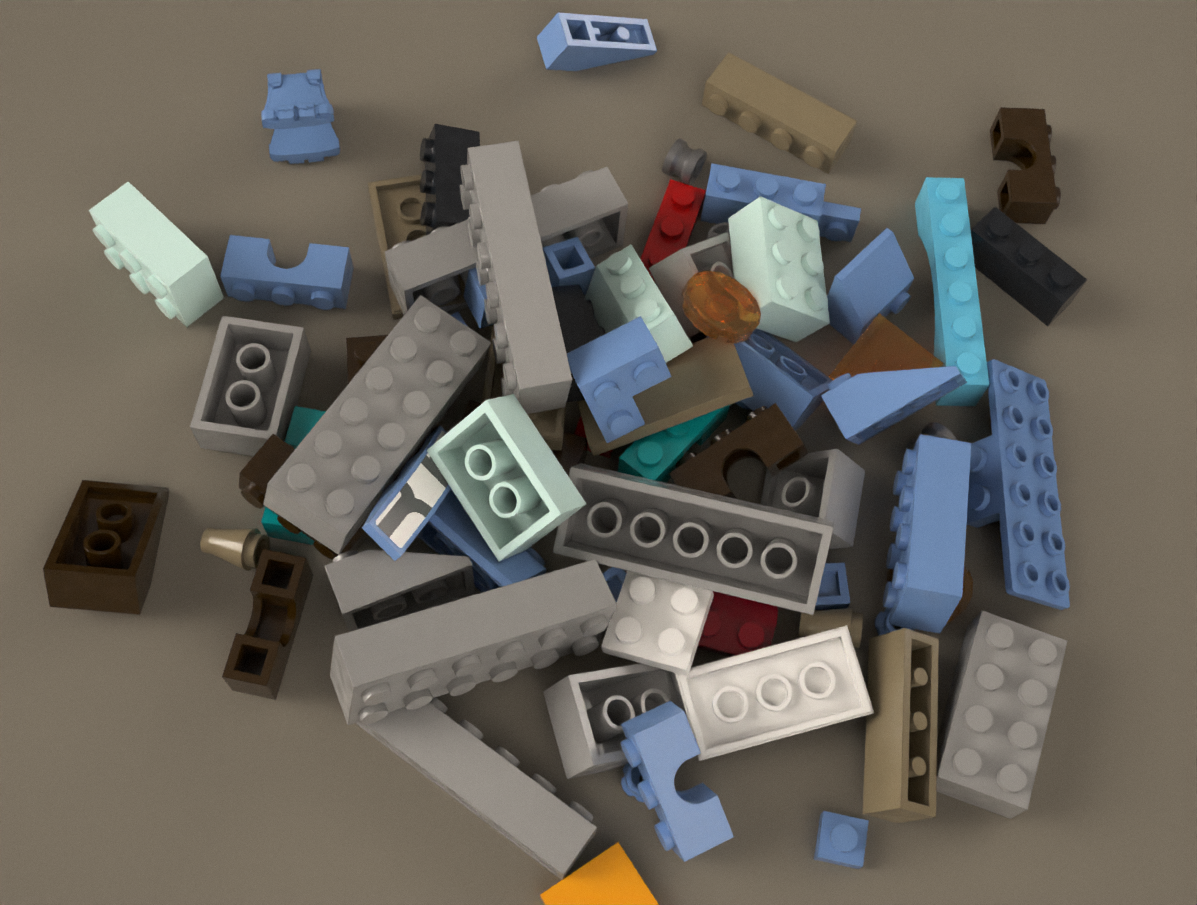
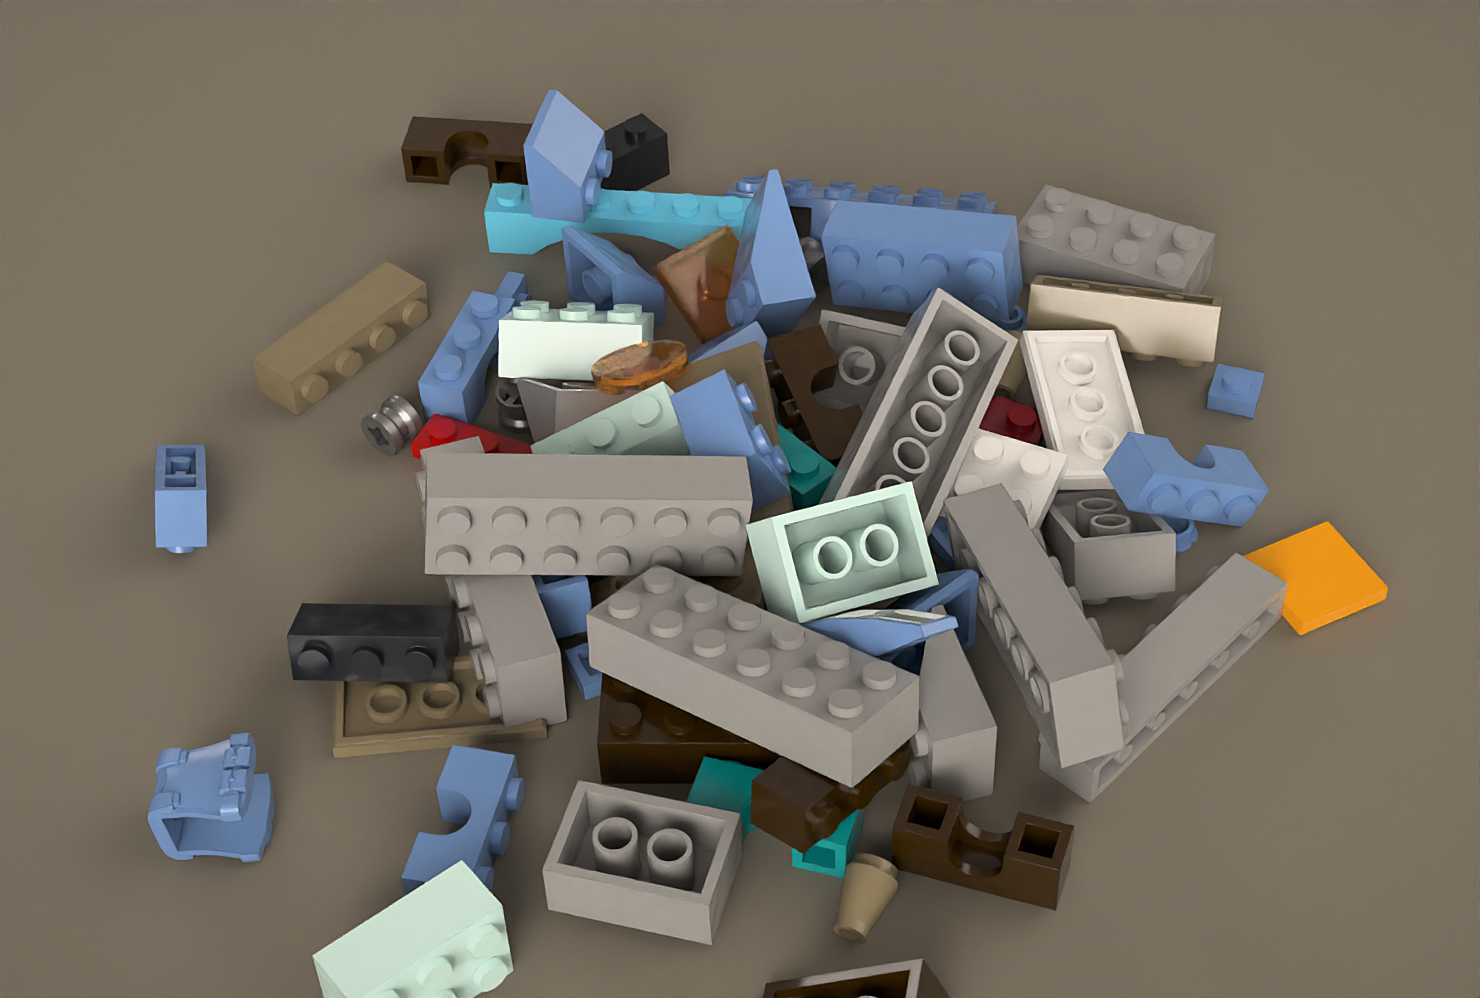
camera: 75 degrees left, 20 degrees down
(969, 212) = (564, 161): none -> medium blue slope

